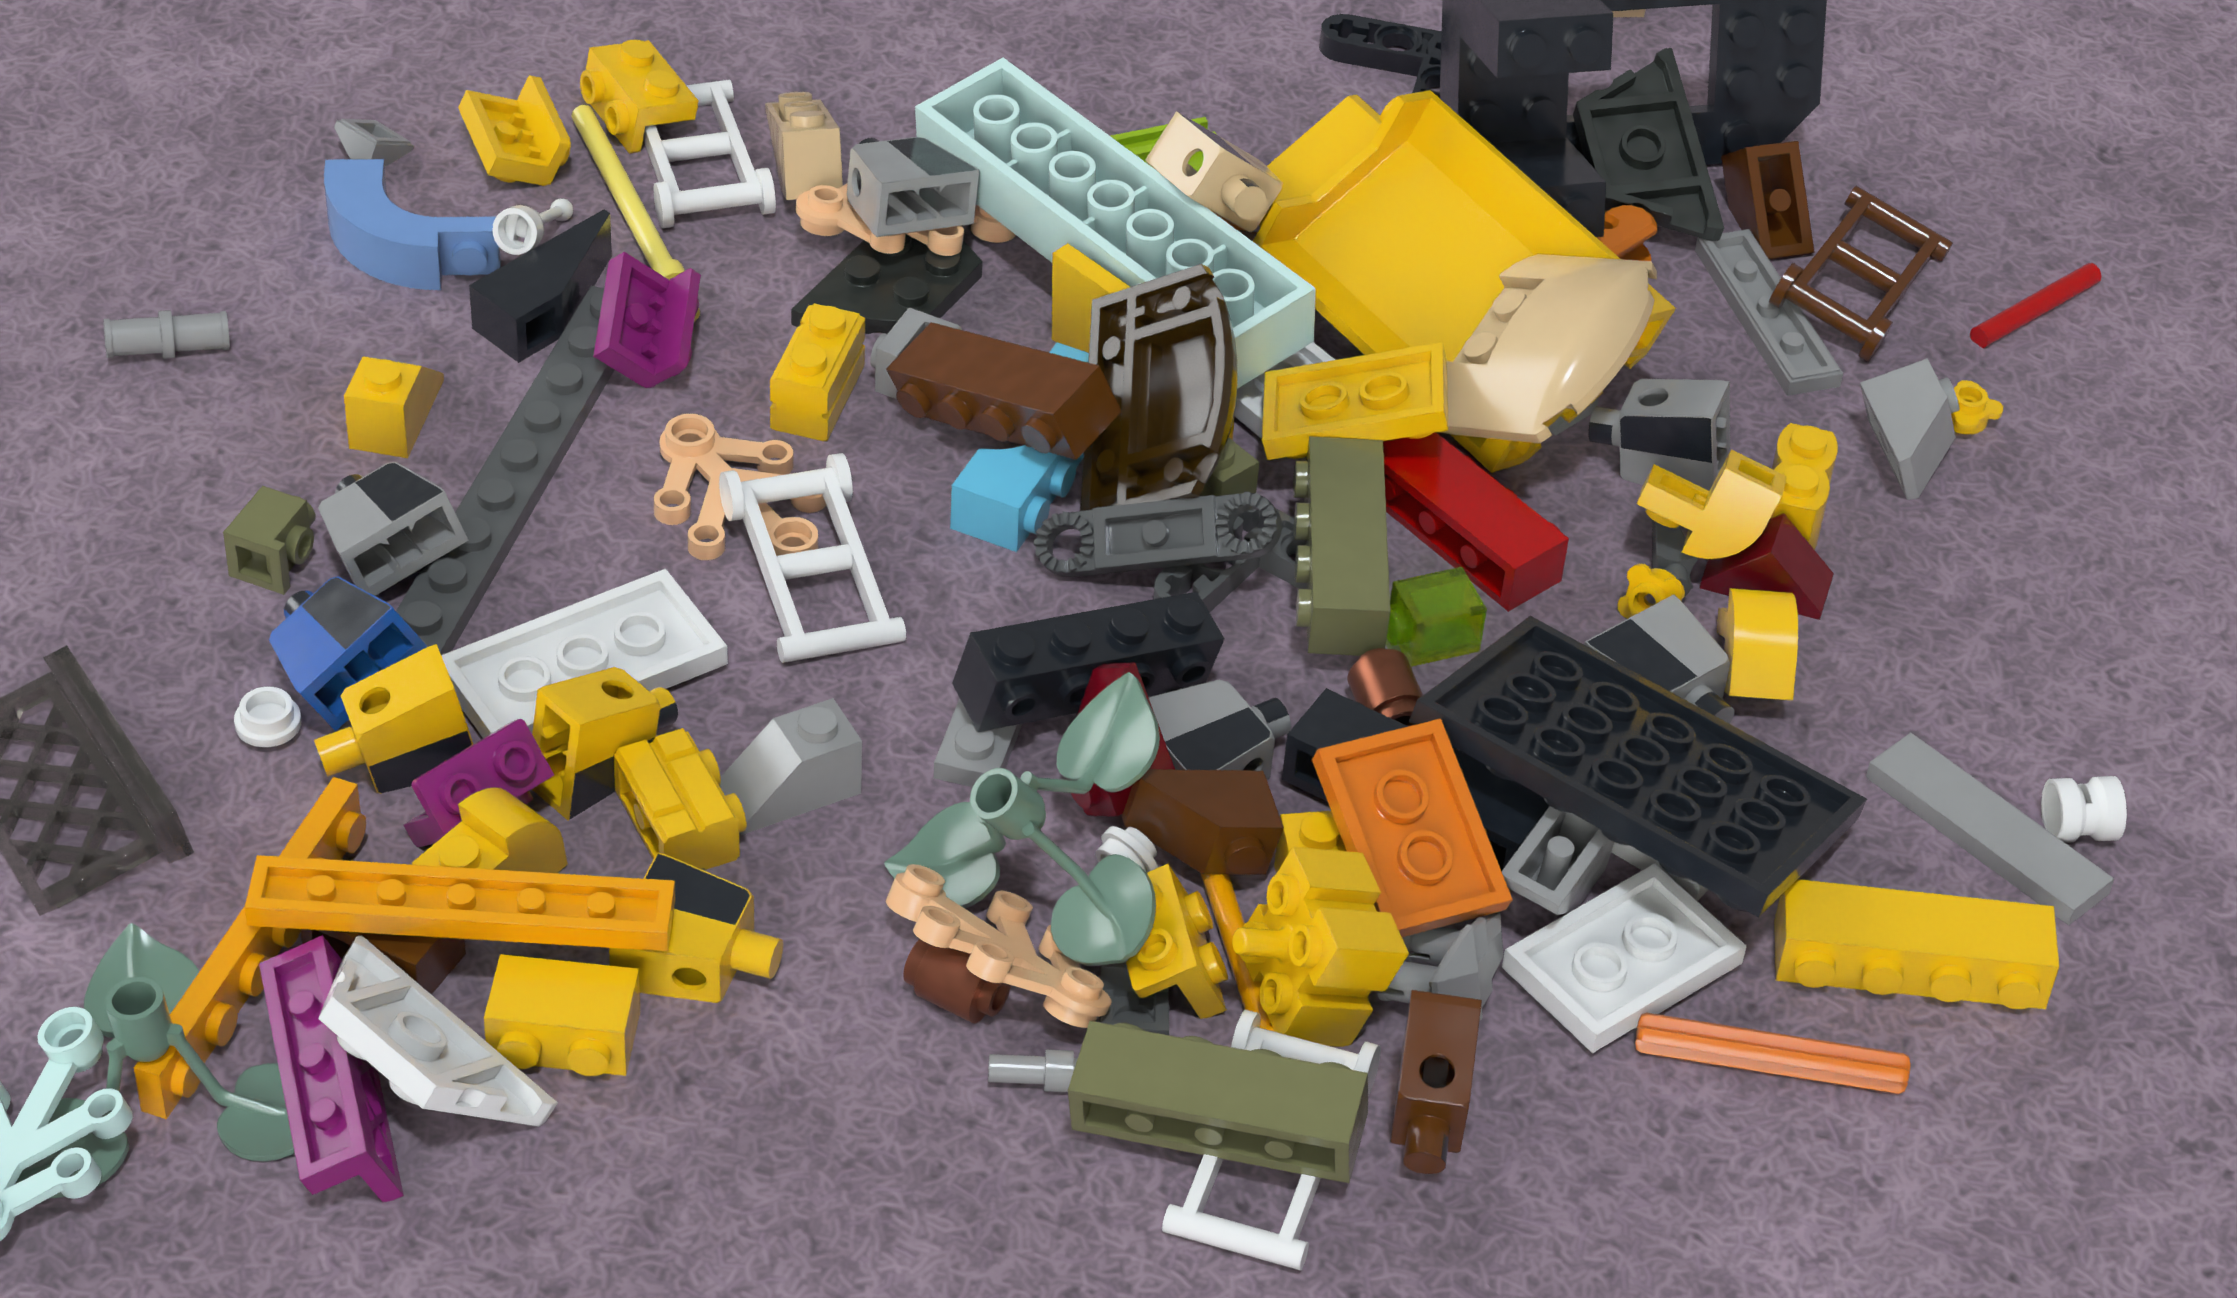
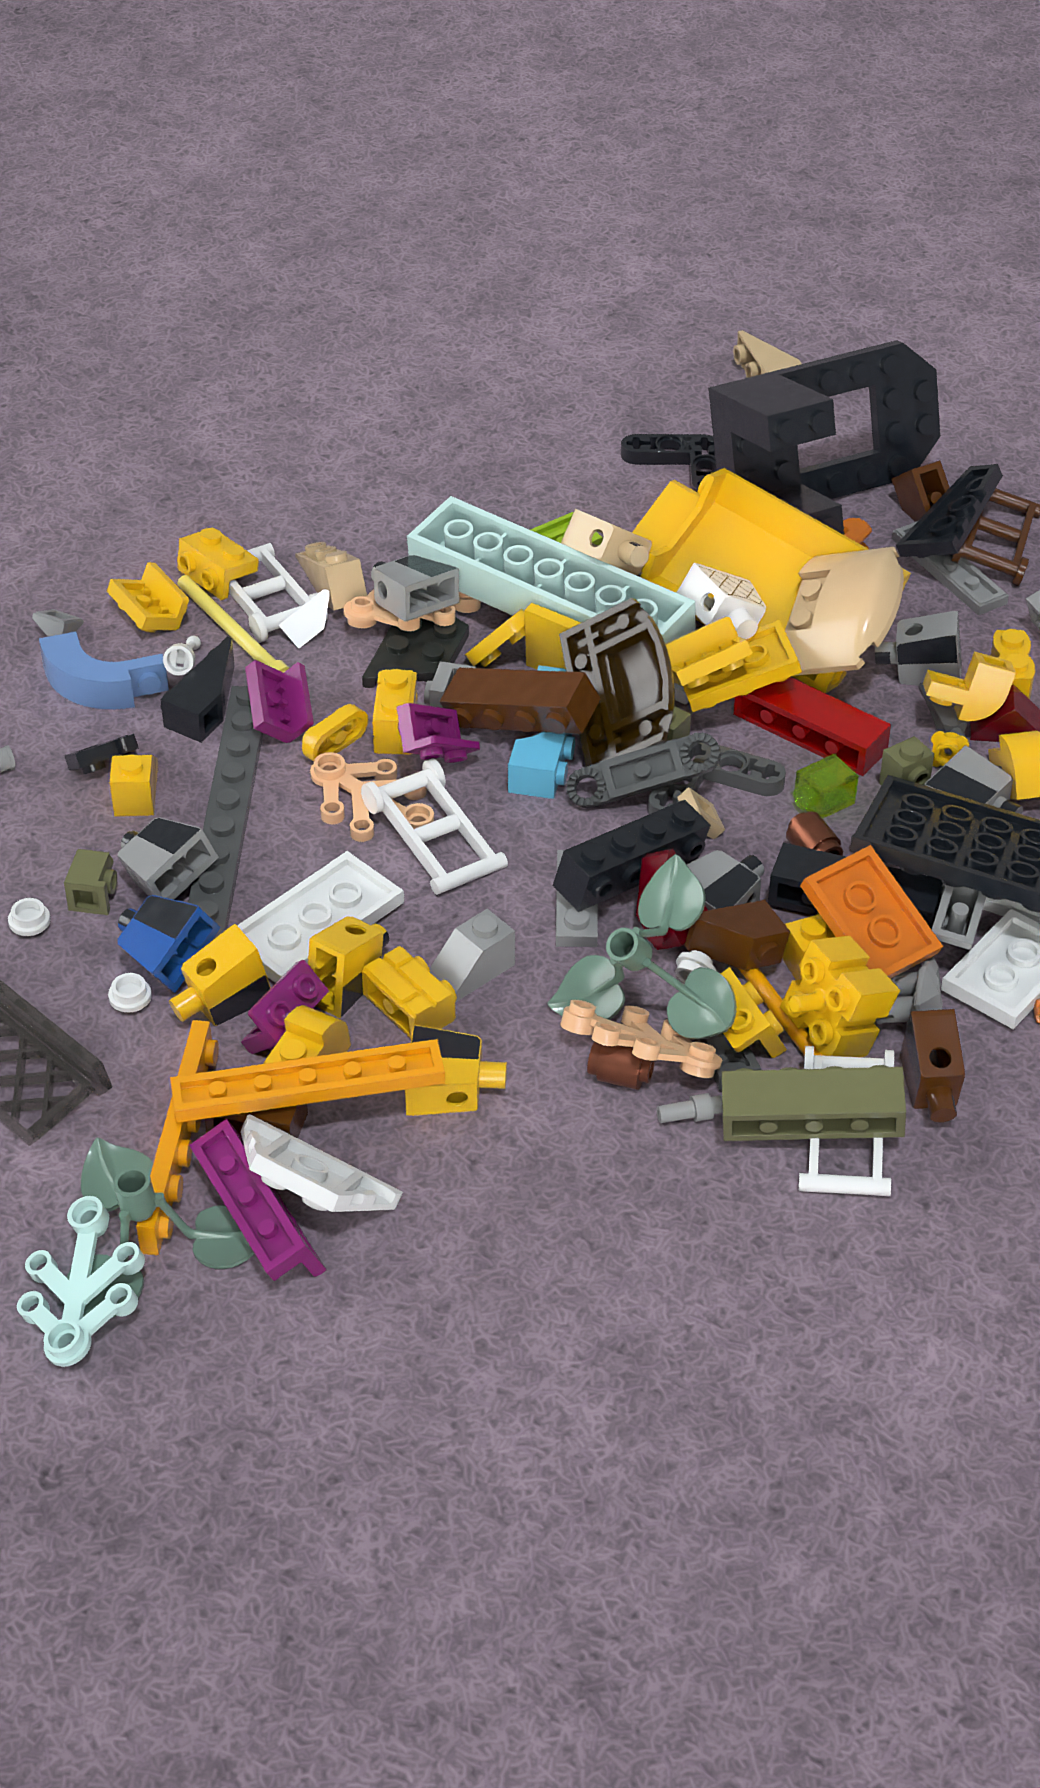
camera: 10 degrees left, 0 degrees up
(163, 574) = (28, 917): none -> white plate
(344, 354) = (93, 757): none -> black plate
(563, 1014) = (389, 1136): yellow brick -> none
(717, 384) = (335, 731): none -> yellow plate
(740, 207) = (307, 620): none -> white sticker
(855, 414) = (433, 733): none -> magenta bracket
(995, 301) = (487, 649): none -> yellow plate
(1232, 616) = (705, 809): none -> tan plate
(1305, 369) = (707, 651): none -> yellow bracket
(1344, 546) = (759, 755): olive brick -> none
(1366, 296) = (732, 598): none -> white torso
(1575, 602) = (907, 761): none -> olive brick
(1649, 149) = (850, 477): pearl dark grey wing -> none
(1791, 231) = (952, 517): none -> black wing

